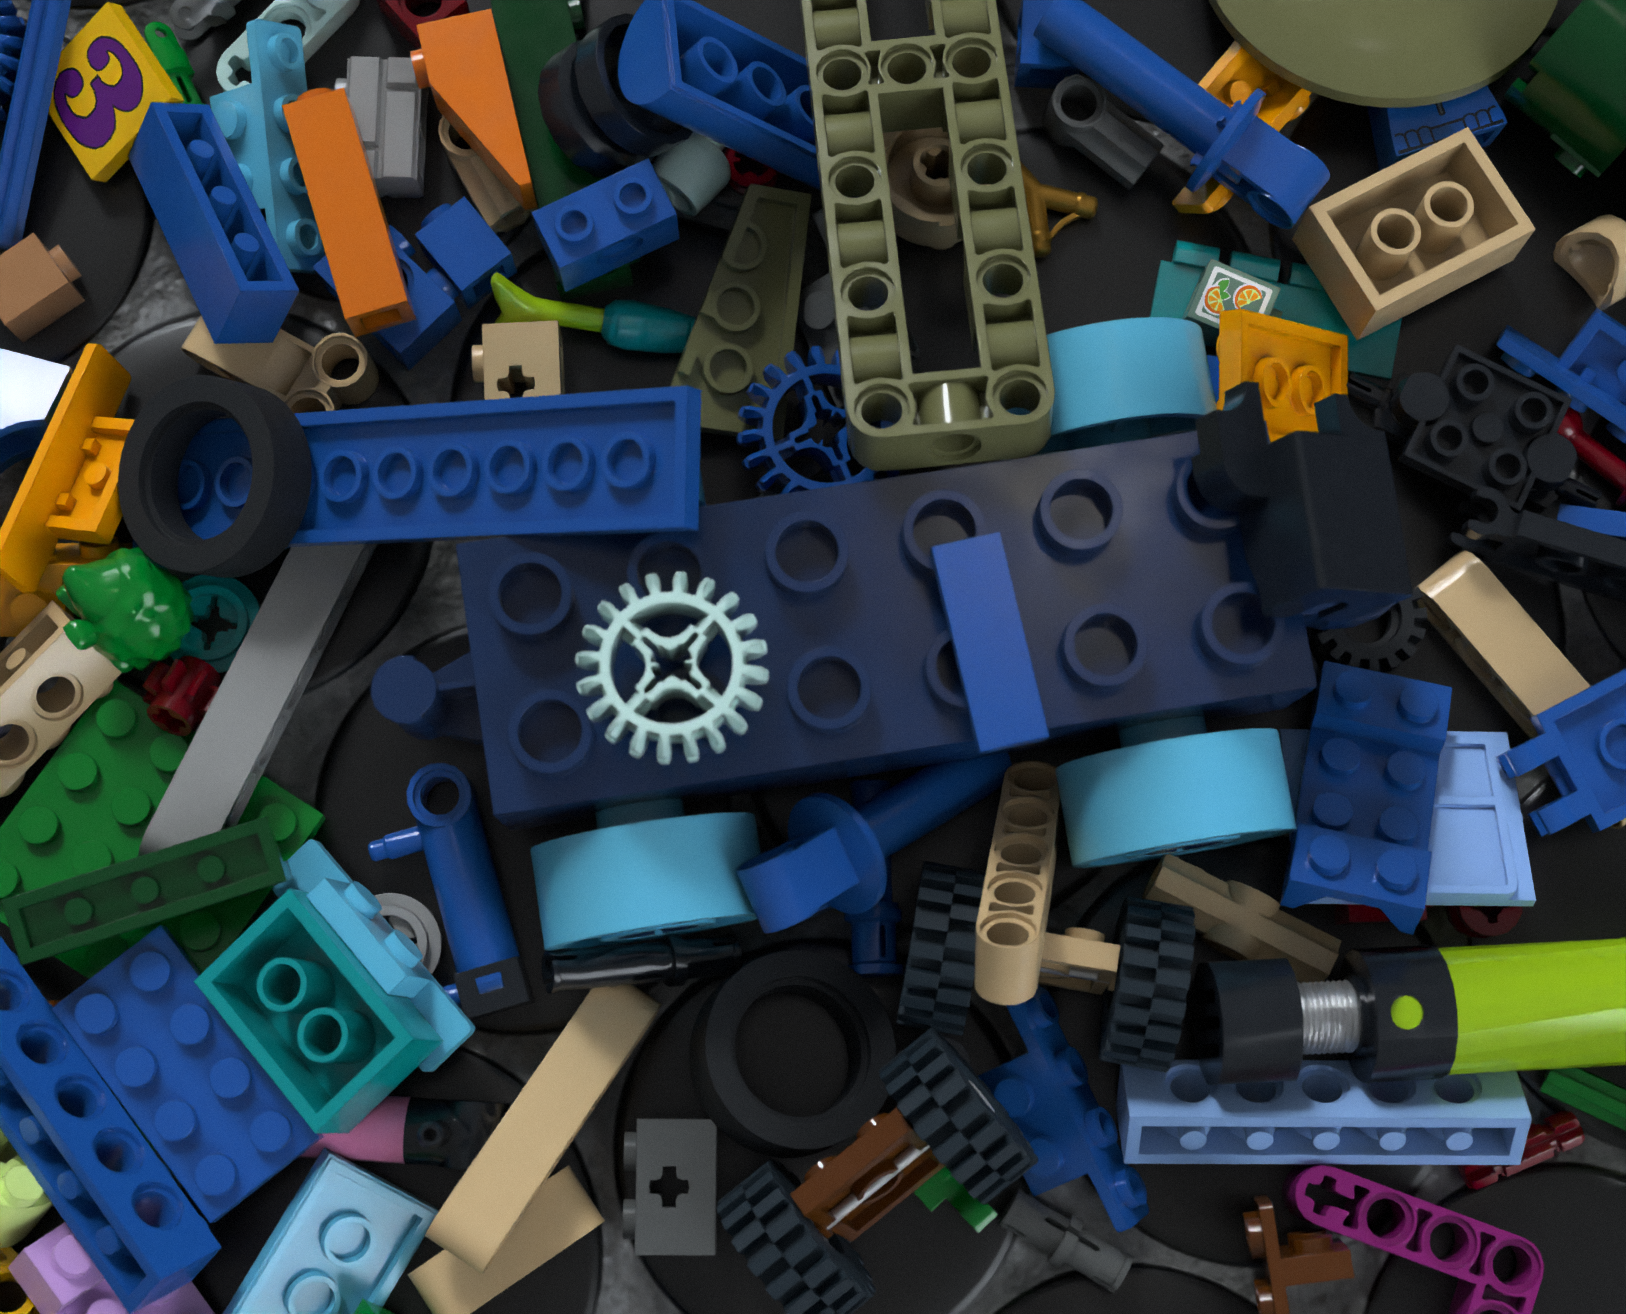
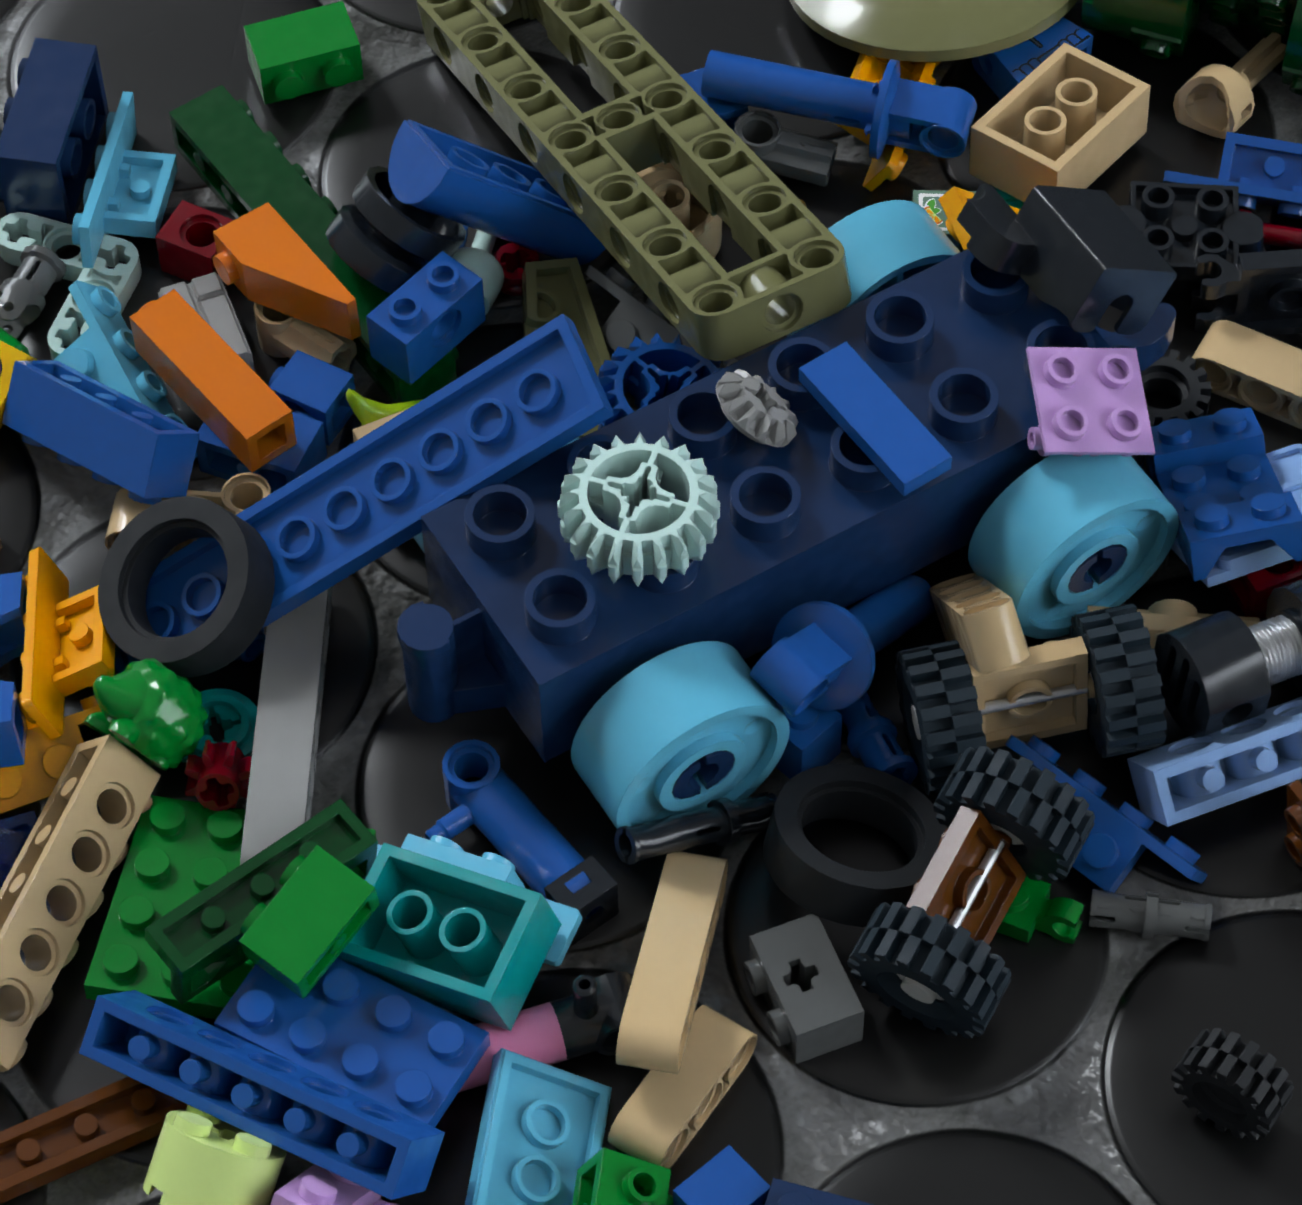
camera: 15 degrees left, 25 degrees down
(166, 965) = (308, 920): none -> green brick
(847, 582) = (756, 409): none -> light grey gear
(1241, 708) = (1088, 402): none -> lavender hinge

